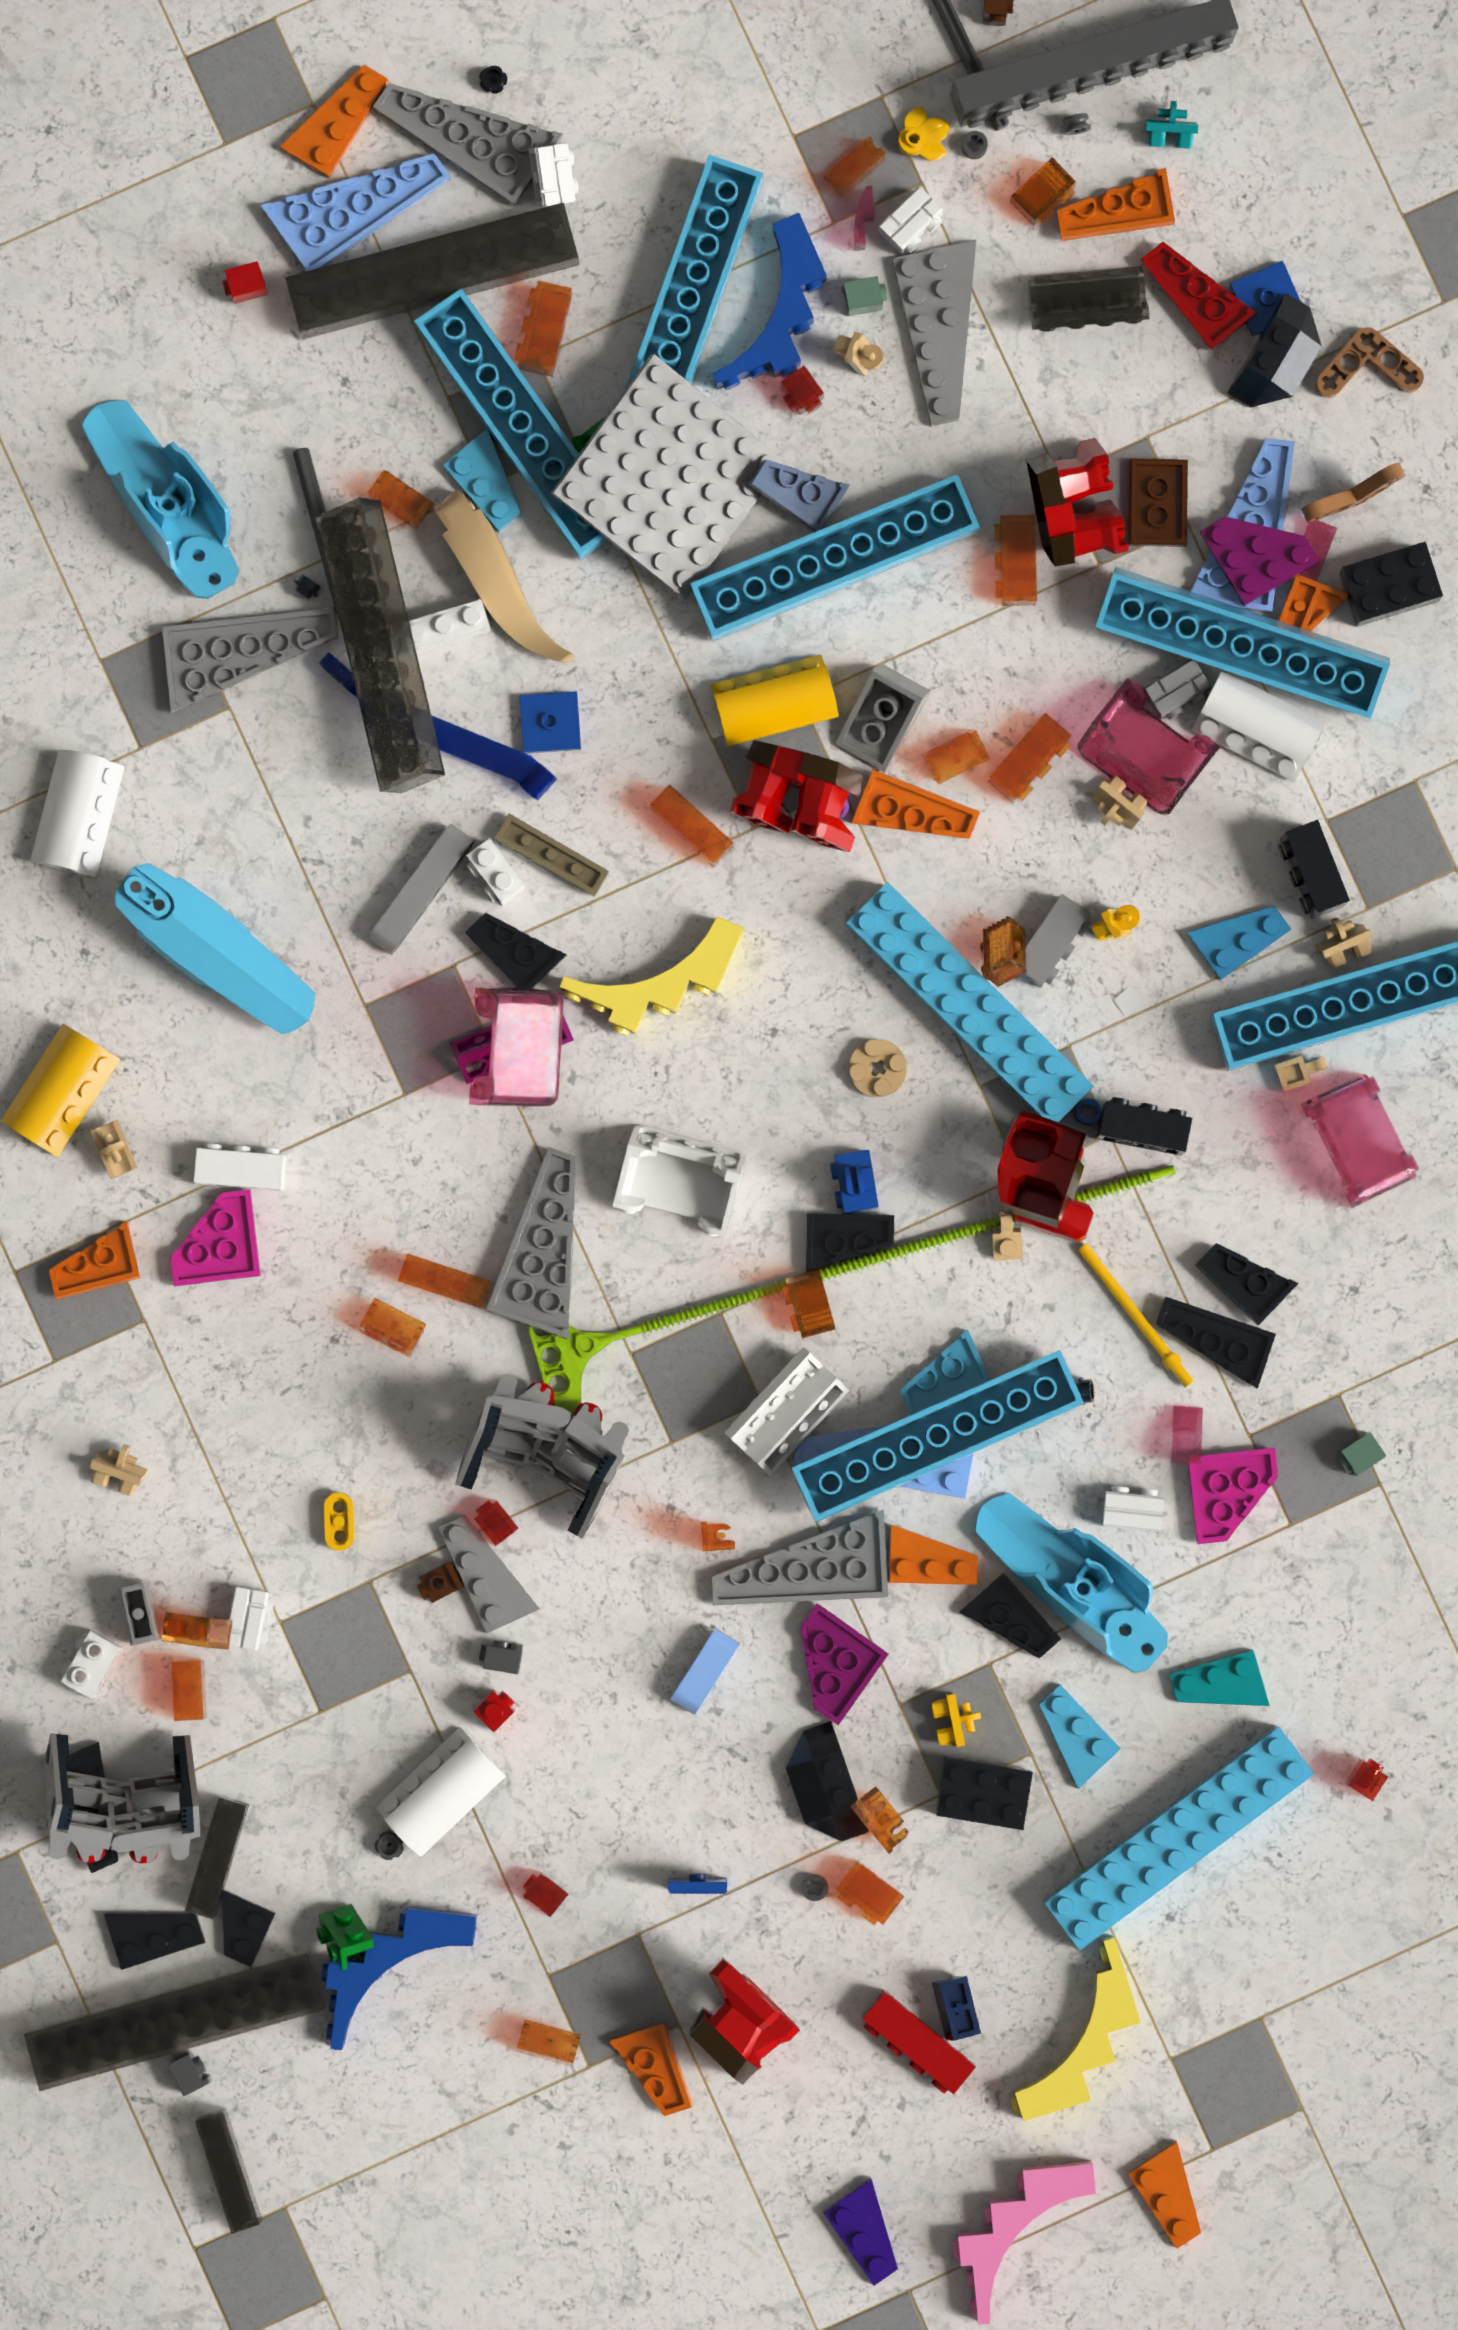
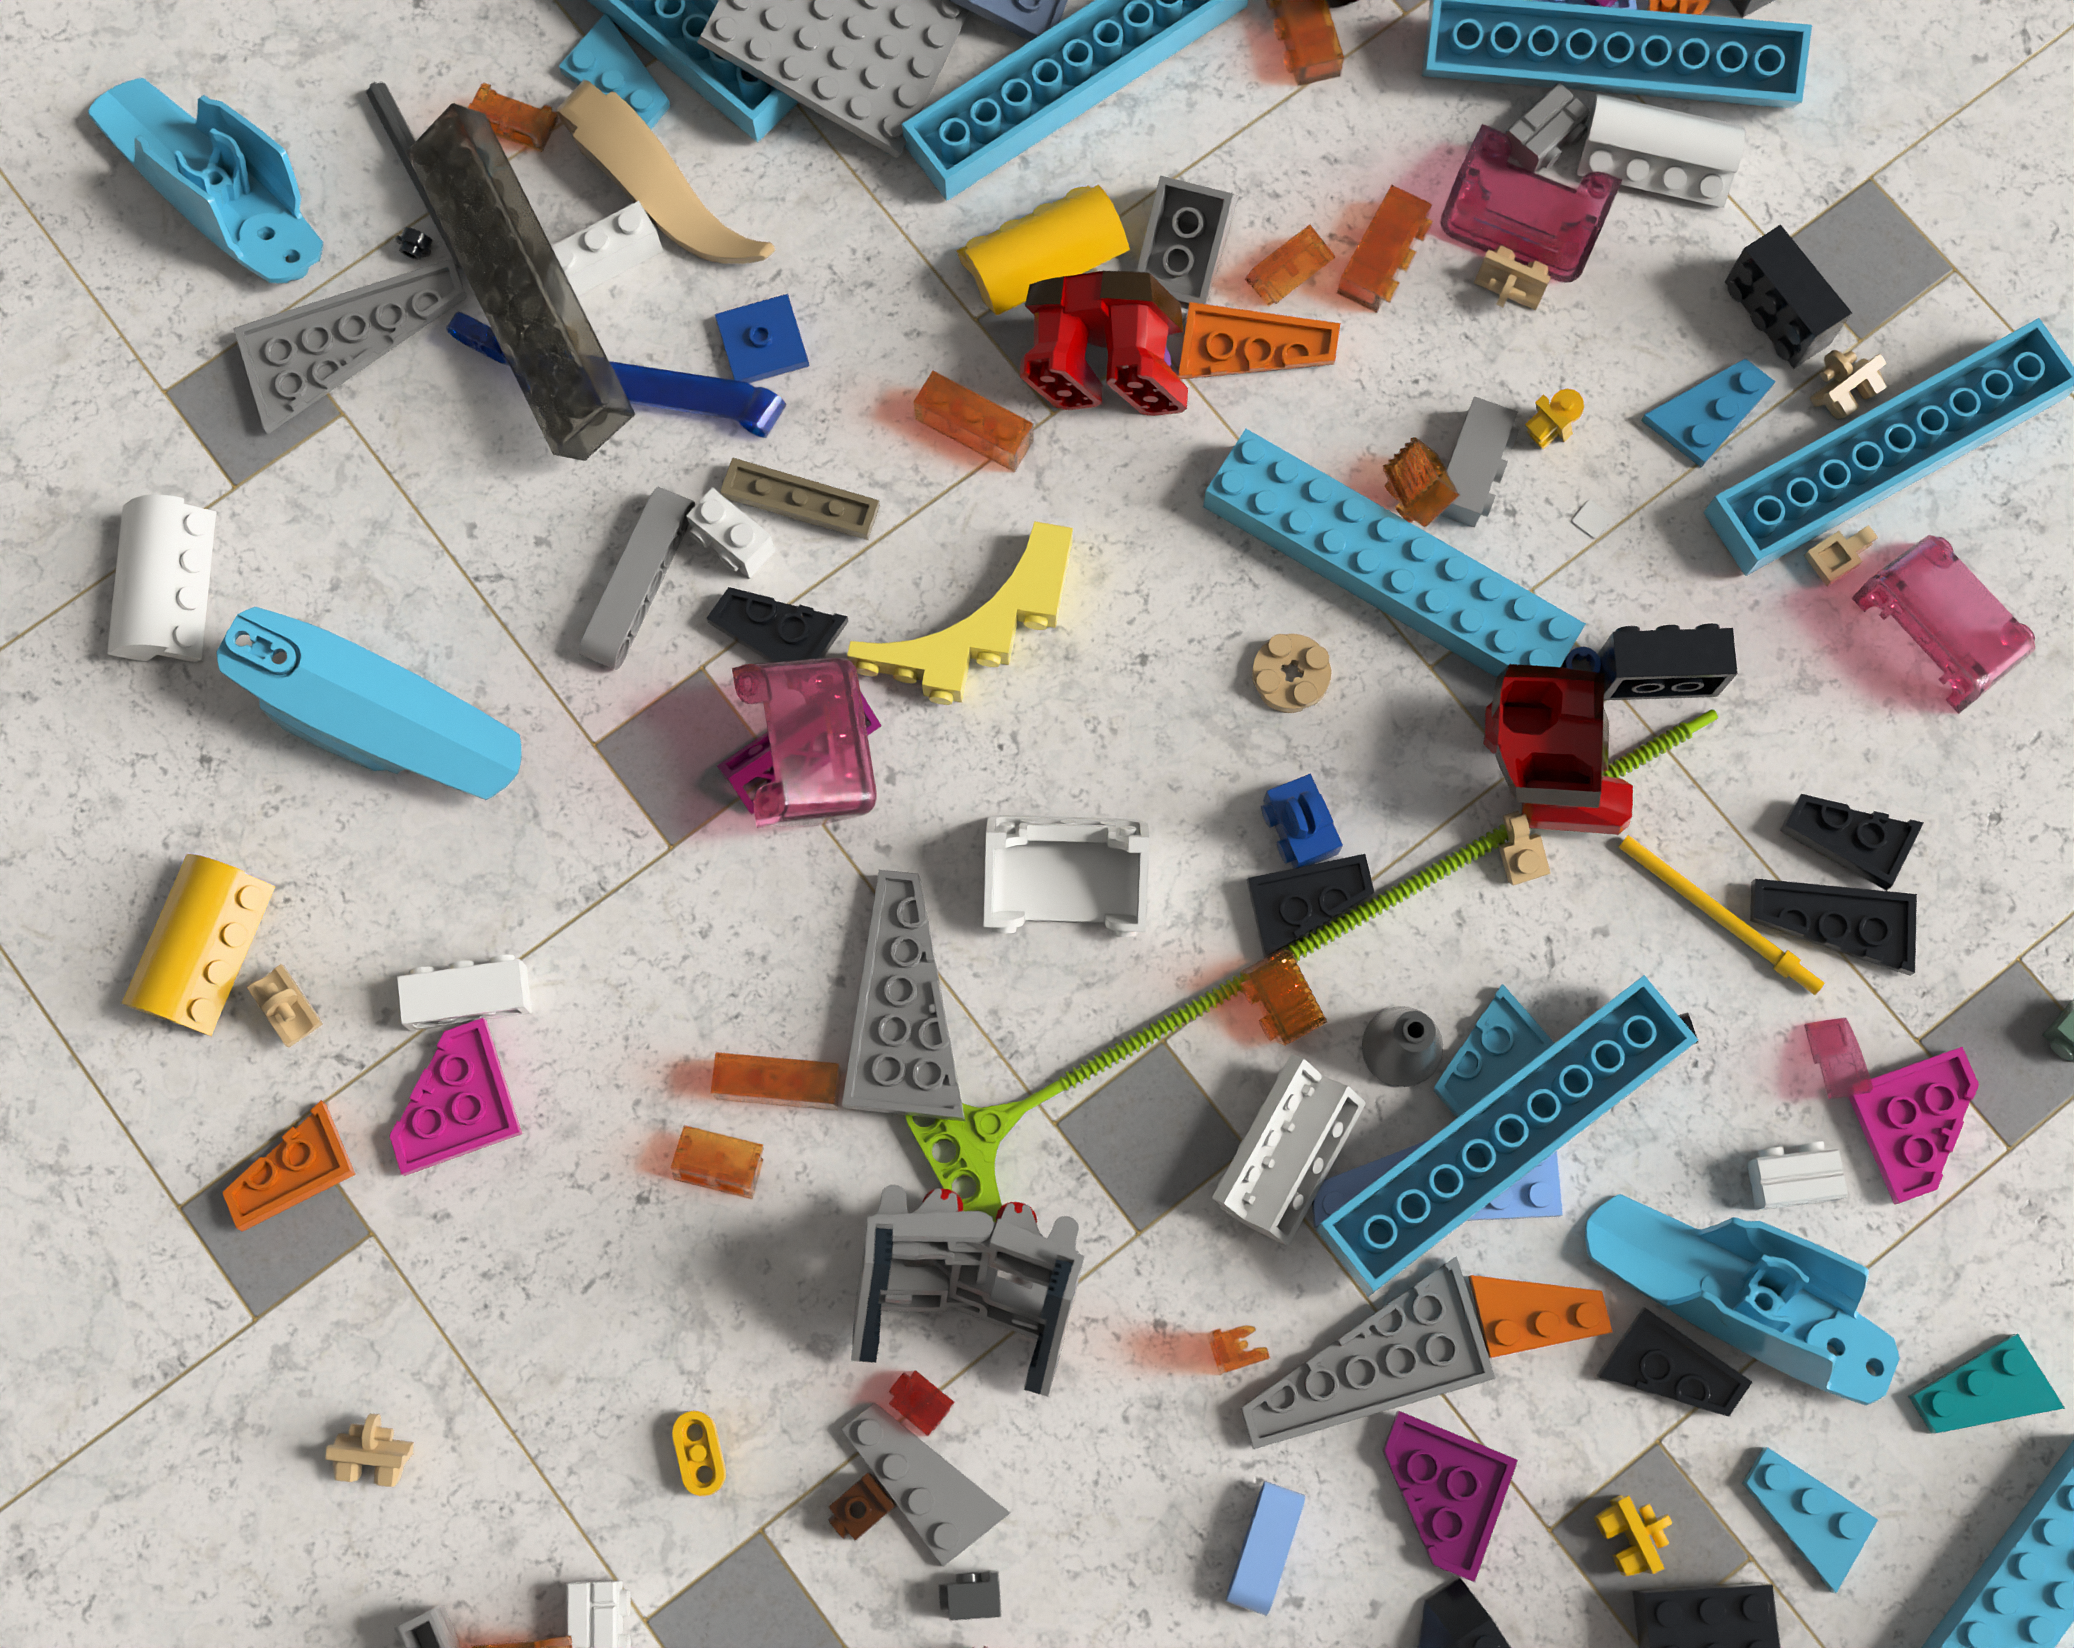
camera: 15 degrees left, 10 degrees down
(884, 1370) = (1402, 1046): none -> dark grey cone

